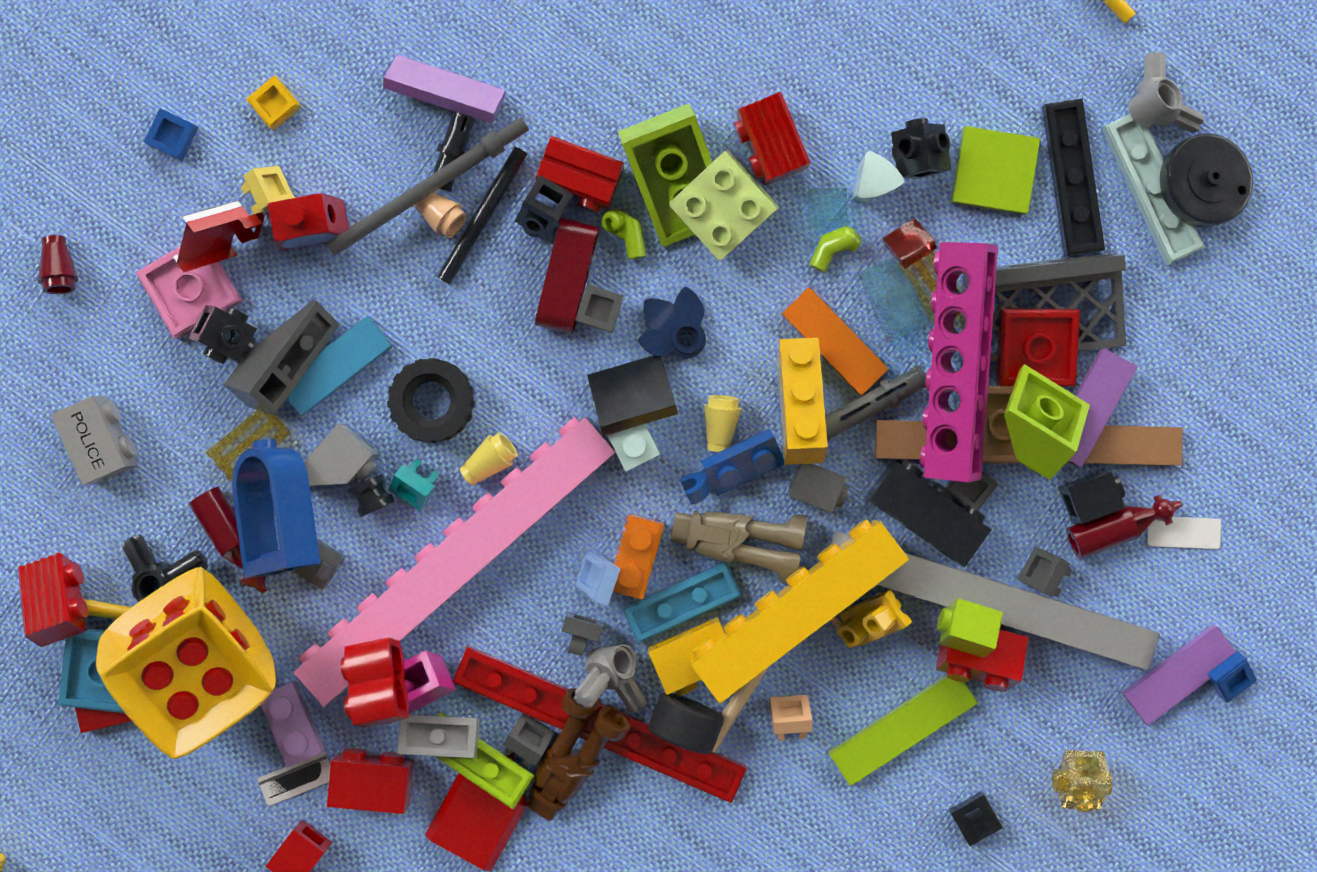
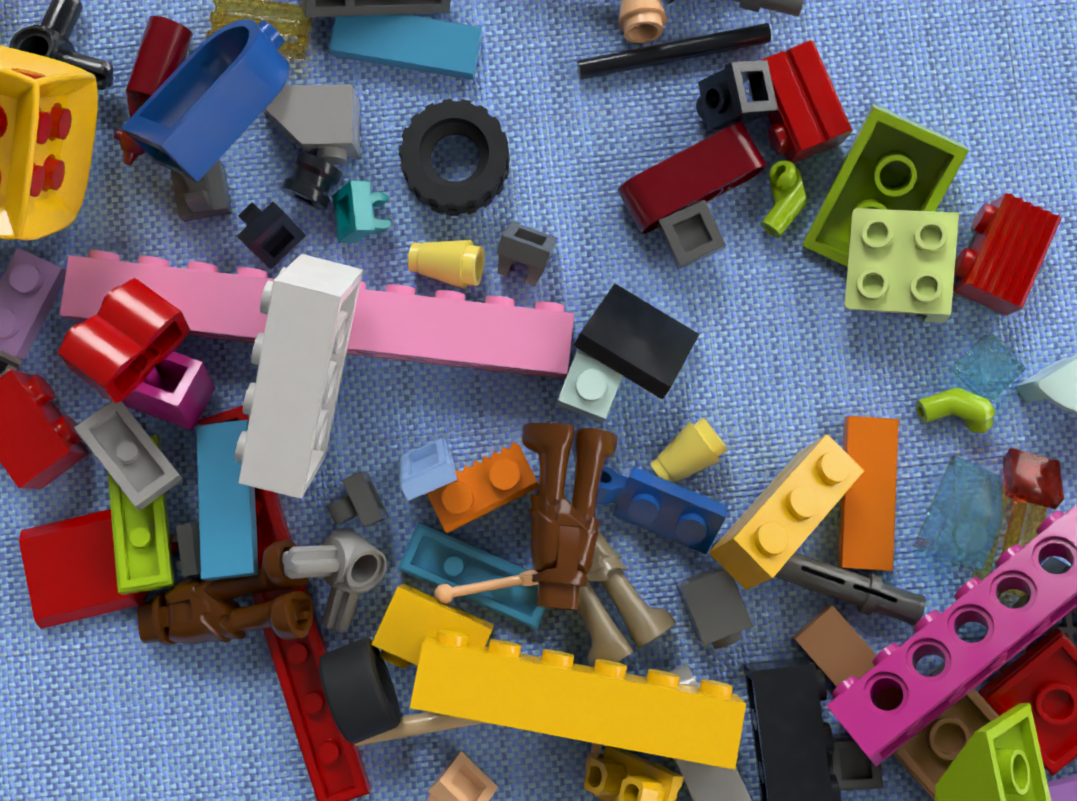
camera: 45 degrees right, 5 degrees down
(380, 547) = (269, 233): none -> black tile
(482, 603) = (298, 374): none -> white brick
(514, 704) = (225, 506): none -> dark azure tile
(521, 407) = (525, 246): none -> dark grey tile
(670, 321) = (738, 317): dark blue plate -> none
(675, 629) = (445, 593): none -> light nougat hinge
(703, 535) = (561, 532): none -> reddish brown piece

